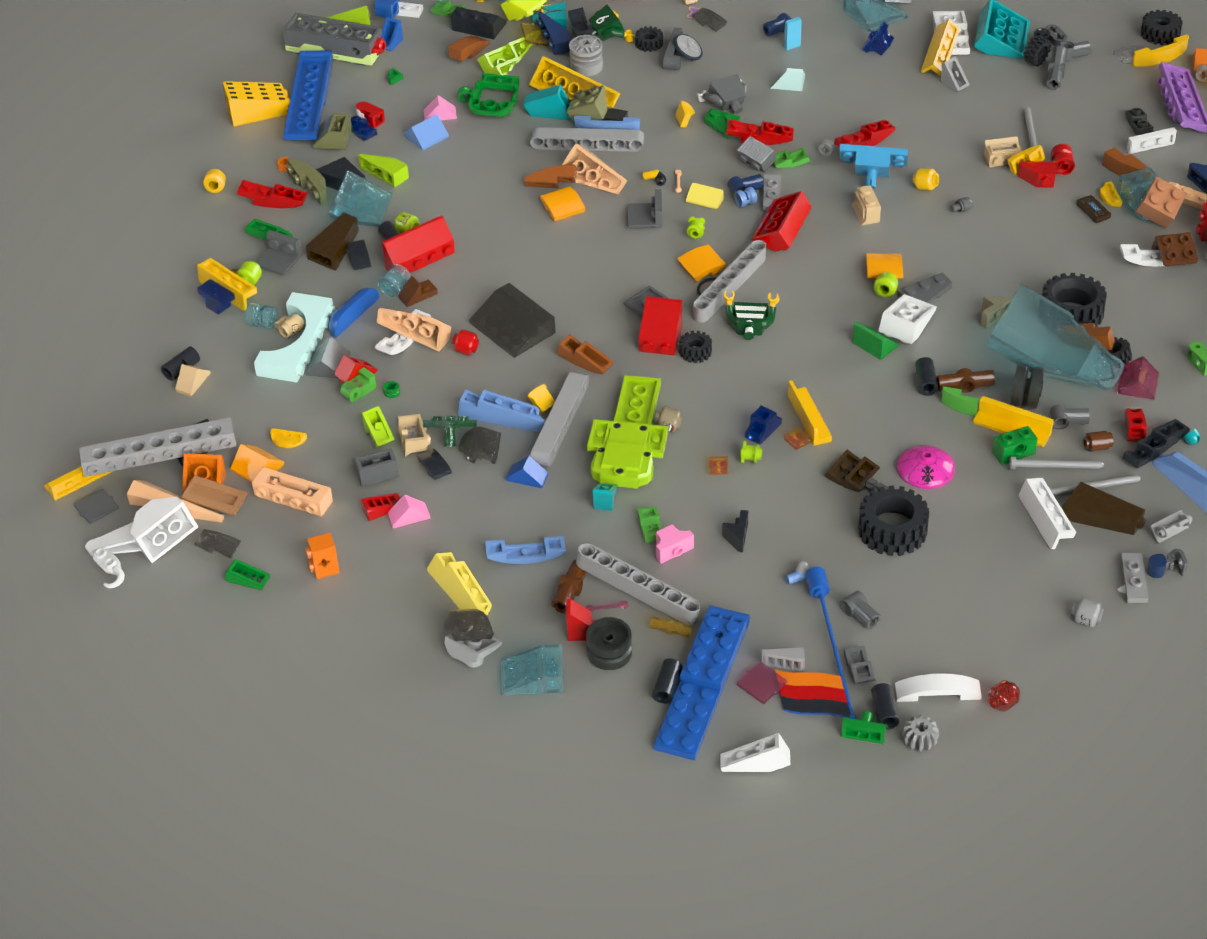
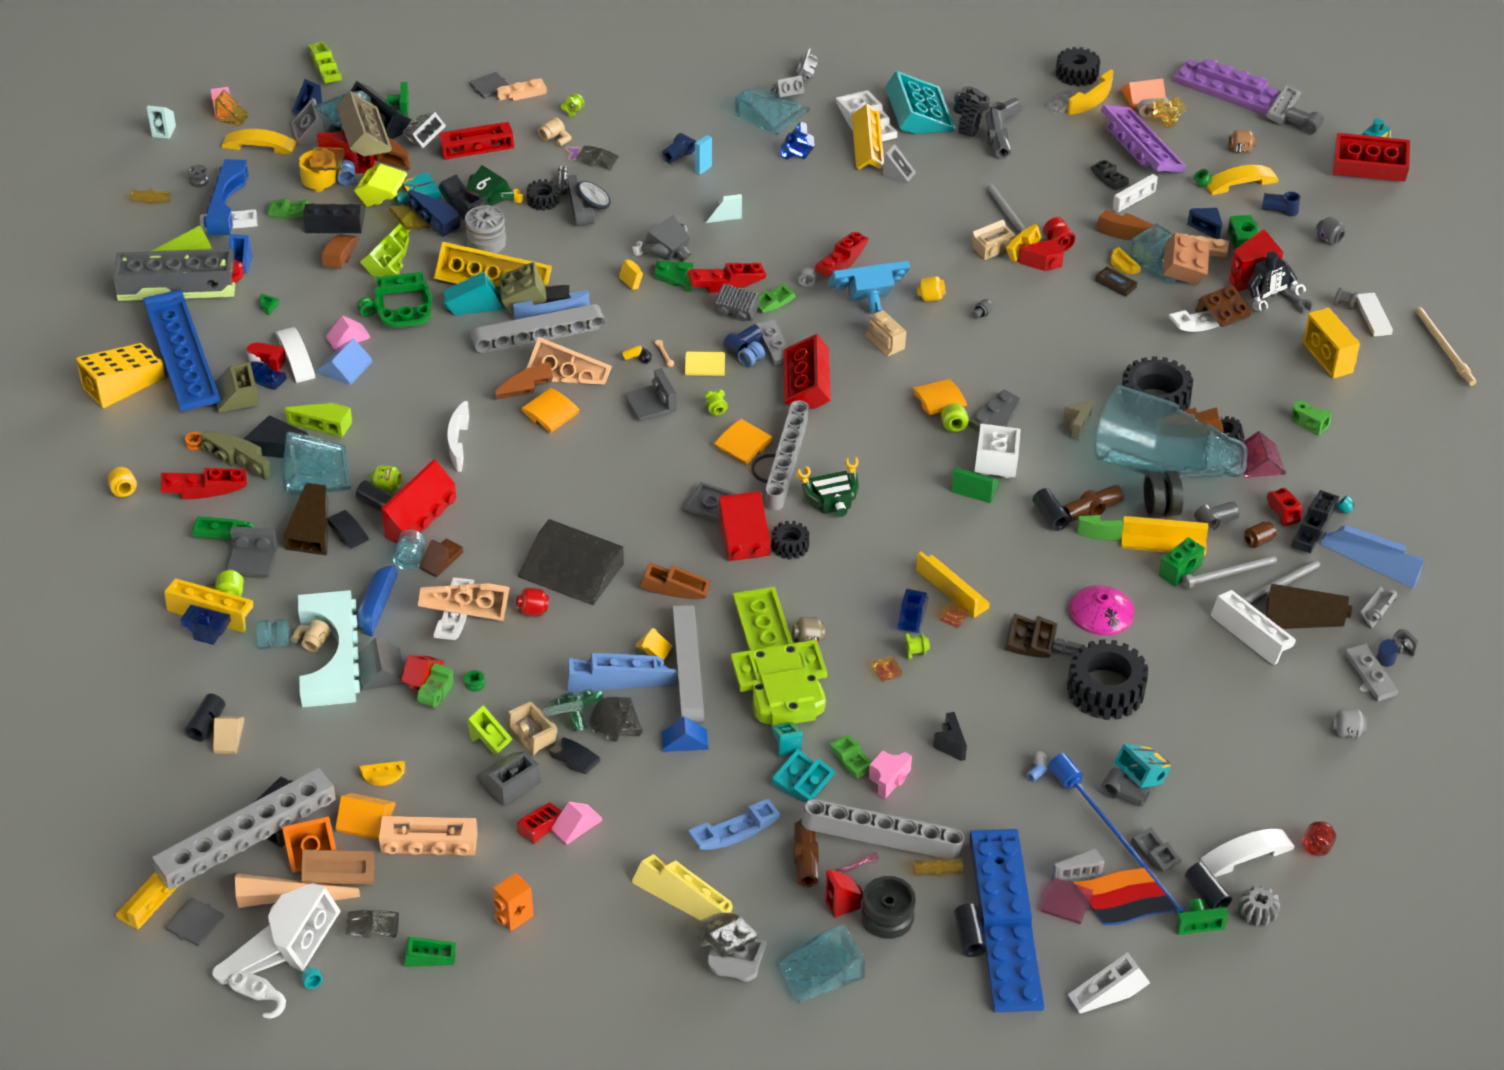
camera: 25 degrees left, 0 degrees up
(153, 568) = (311, 978): none -> teal hinge
(392, 118) = (296, 354): none -> white slope
(485, 194) = (458, 422): none -> white slope
(602, 528) = (802, 776): none -> teal slope
(667, 34) = (562, 179): none -> dark grey axle
(883, 595) = (1142, 765): none -> teal torso

